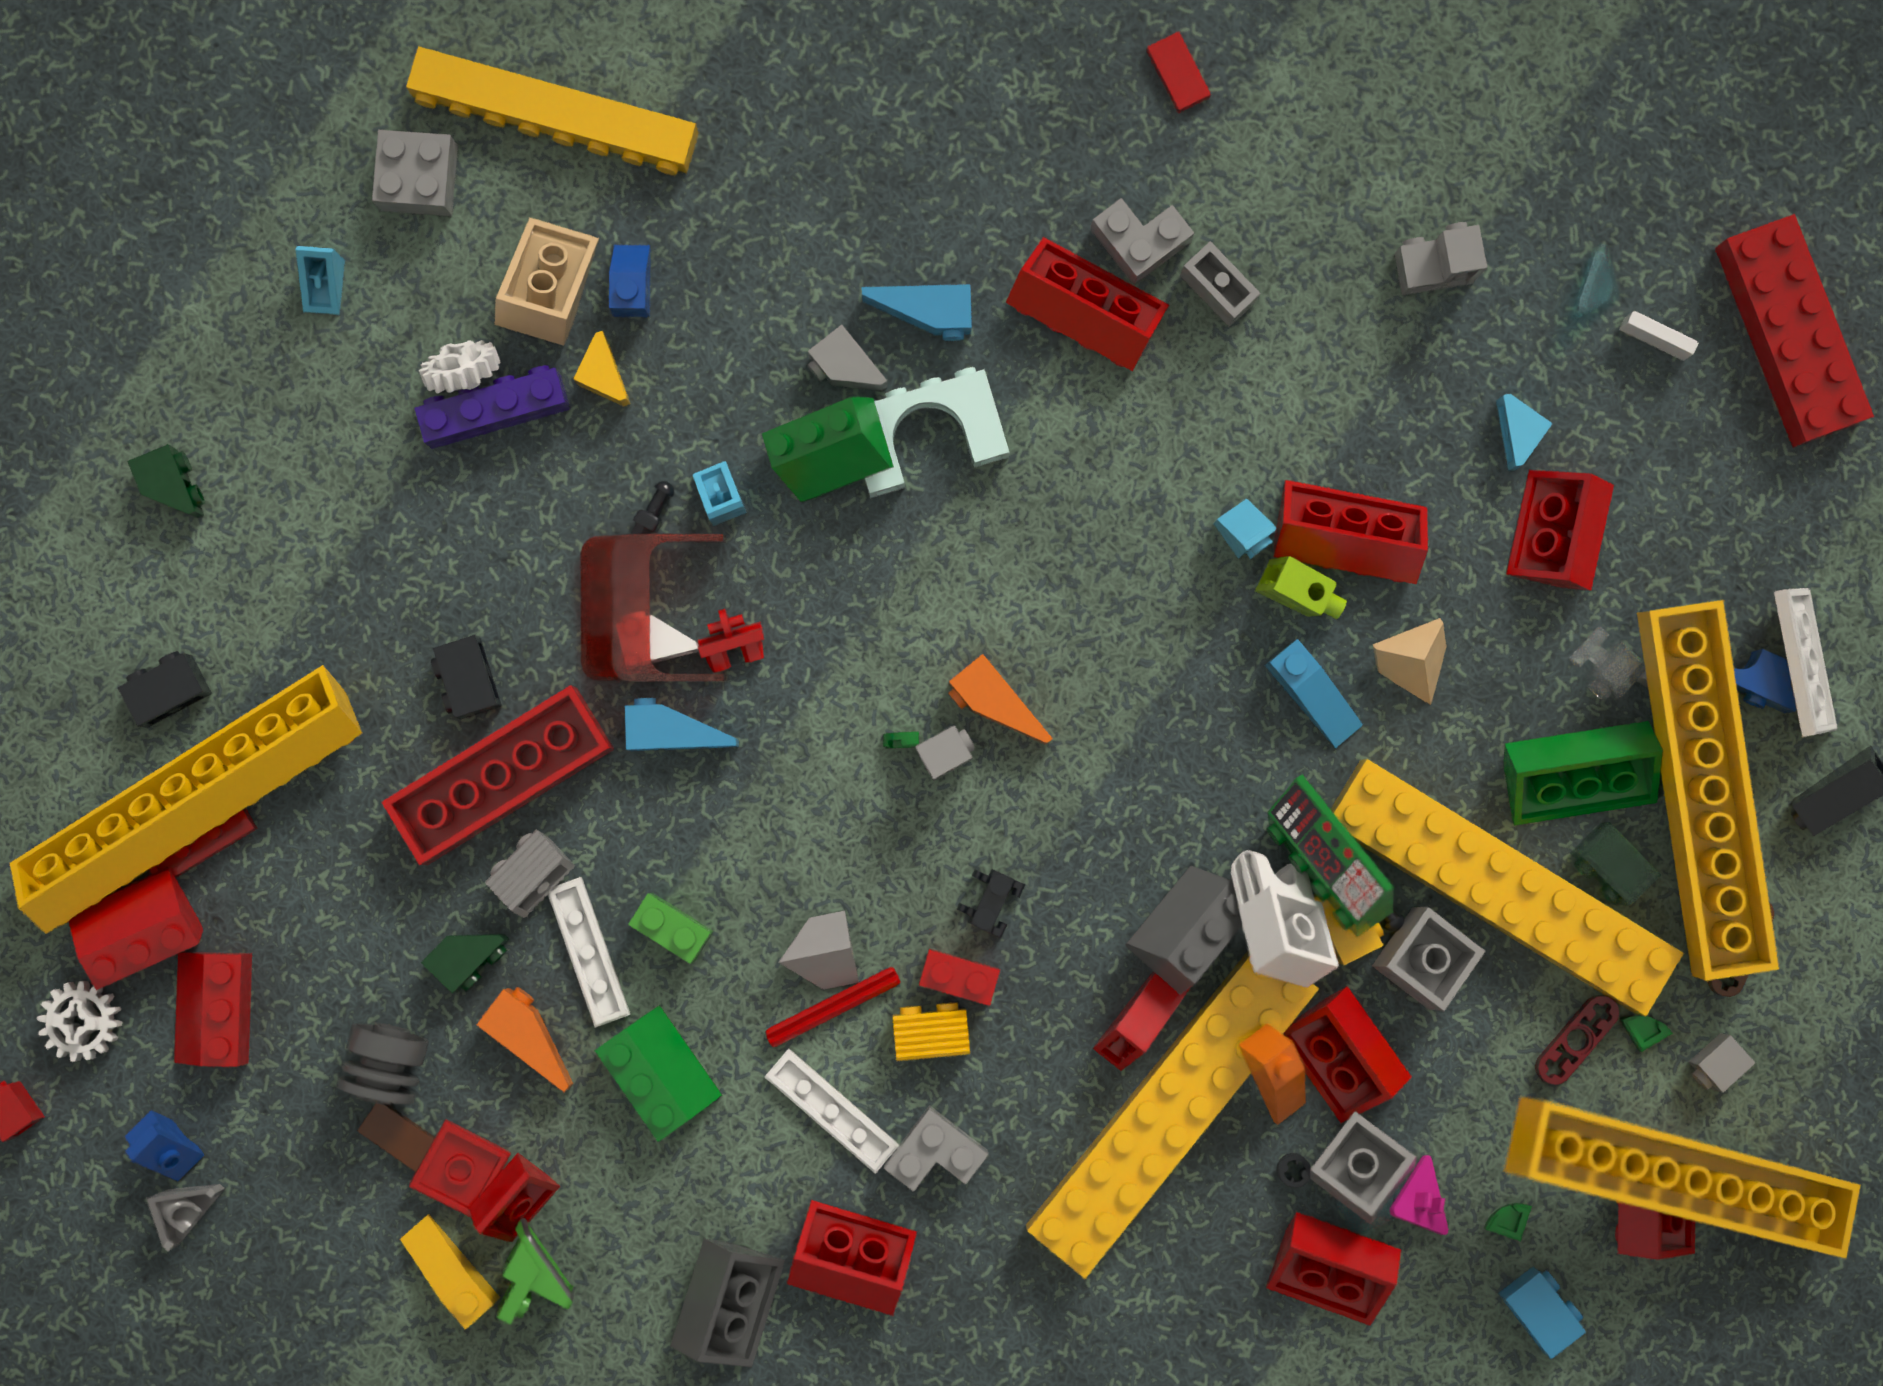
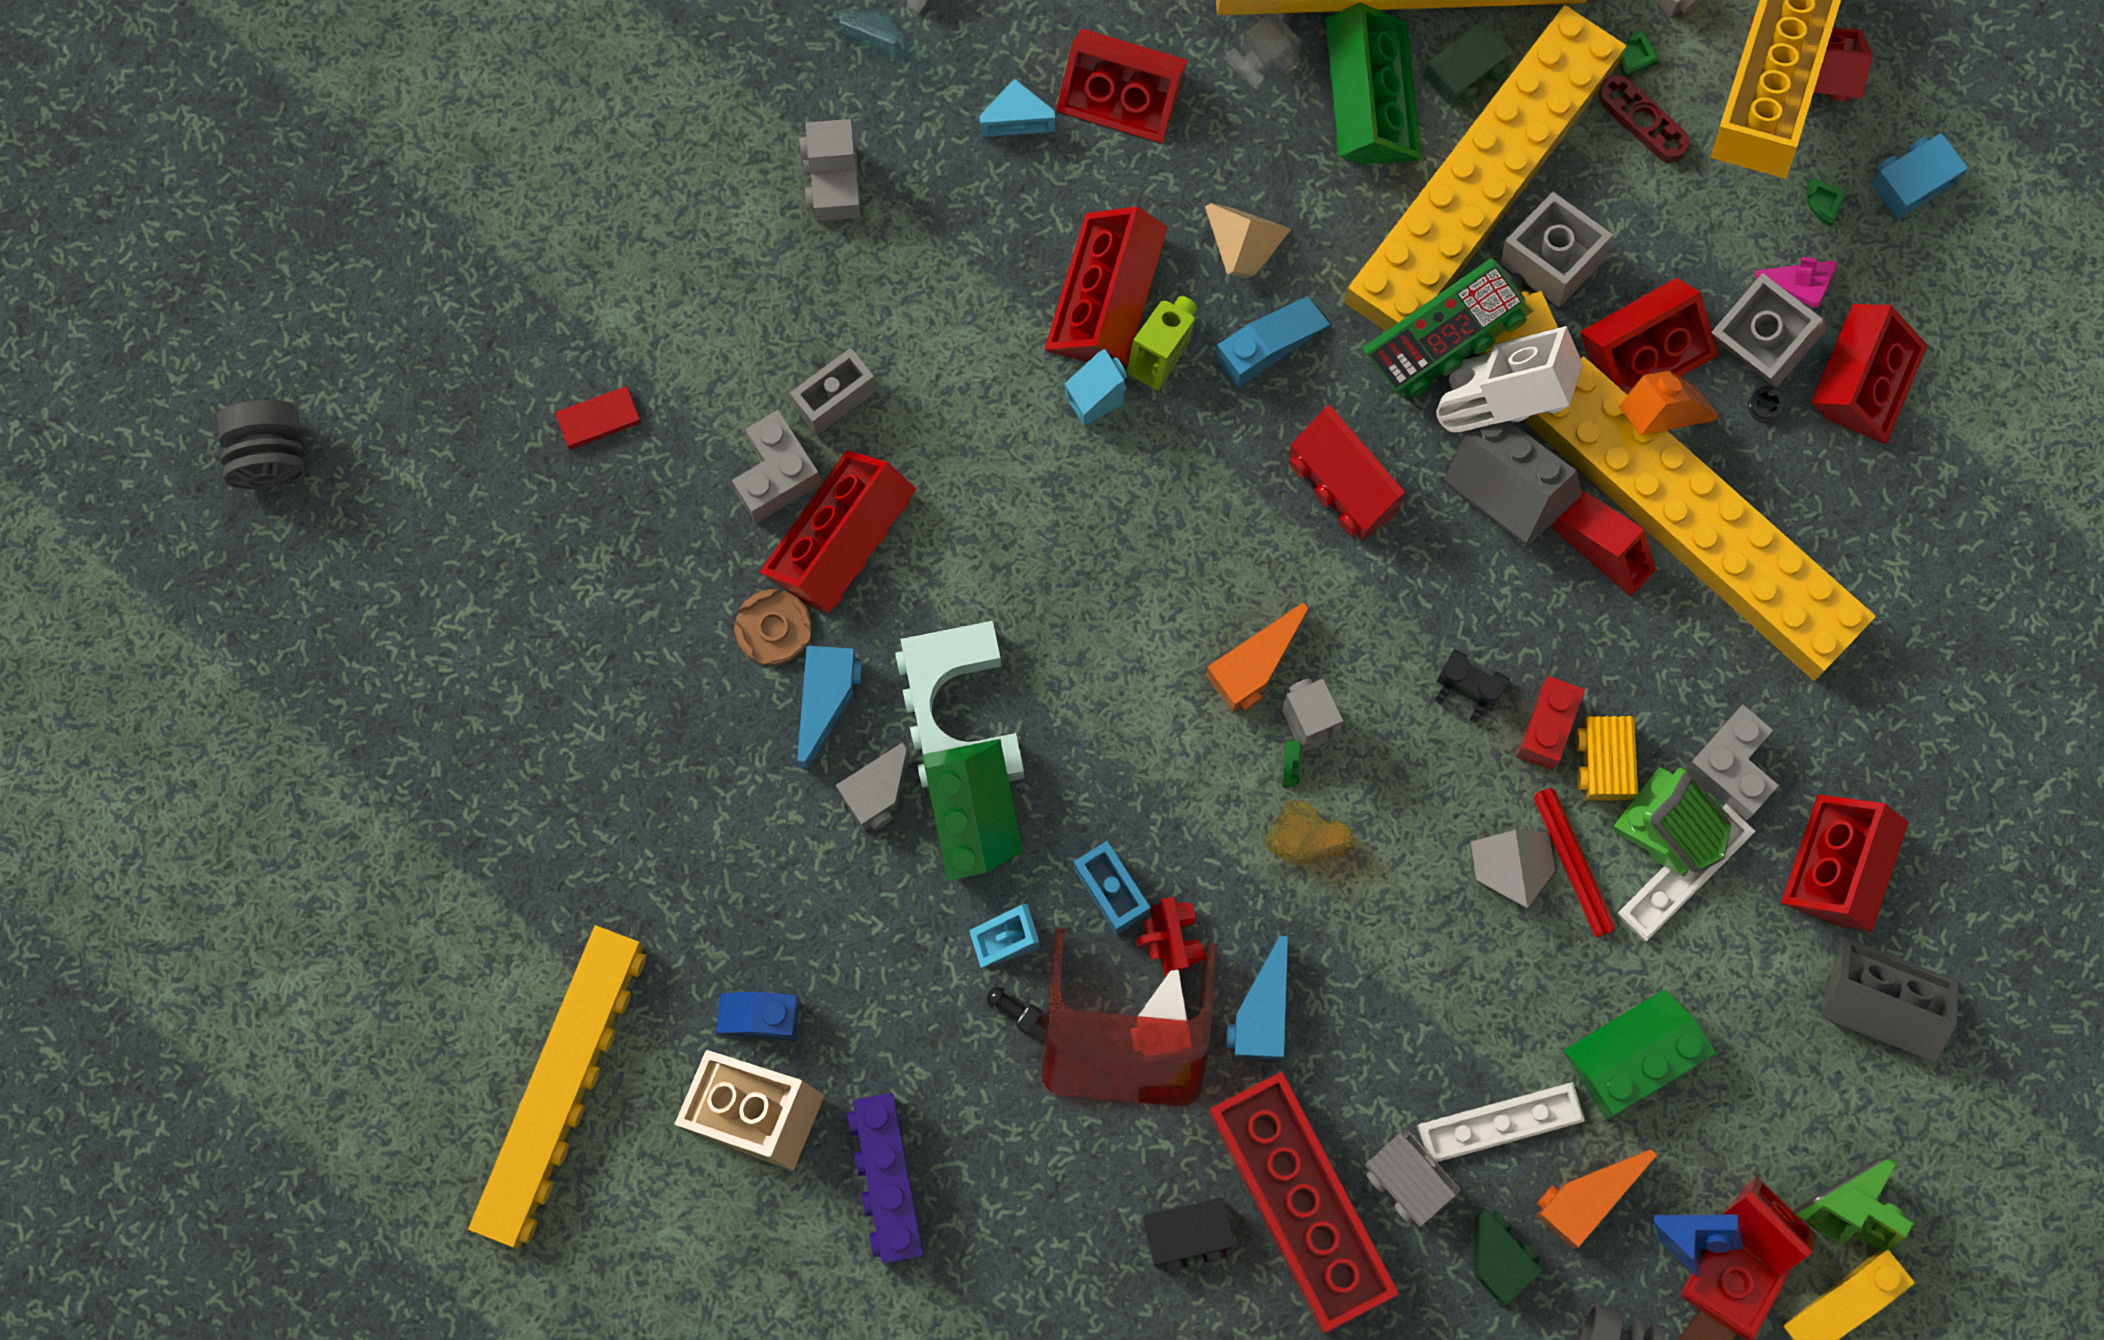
camera: 80 degrees left, 10 degrees down
(415, 173) = (610, 1247): light grey brick -> none
(459, 366) = (839, 1209): white gear -> none
(496, 1125) = (1690, 1233): none -> blue slope
(600, 373) = (861, 1054): yellow slope -> none
(670, 928) = (1481, 1026): bright green brick -> none
(768, 582) = (1111, 888): none -> dark azure brick
(832, 756) = (1306, 838): none -> clear yellow slope
(874, 1099) = (1677, 822): none -> bright green piece
(986, 265) = (770, 638): none -> medium nougat tile
(1180, 768) = (1345, 475): none -> red slope

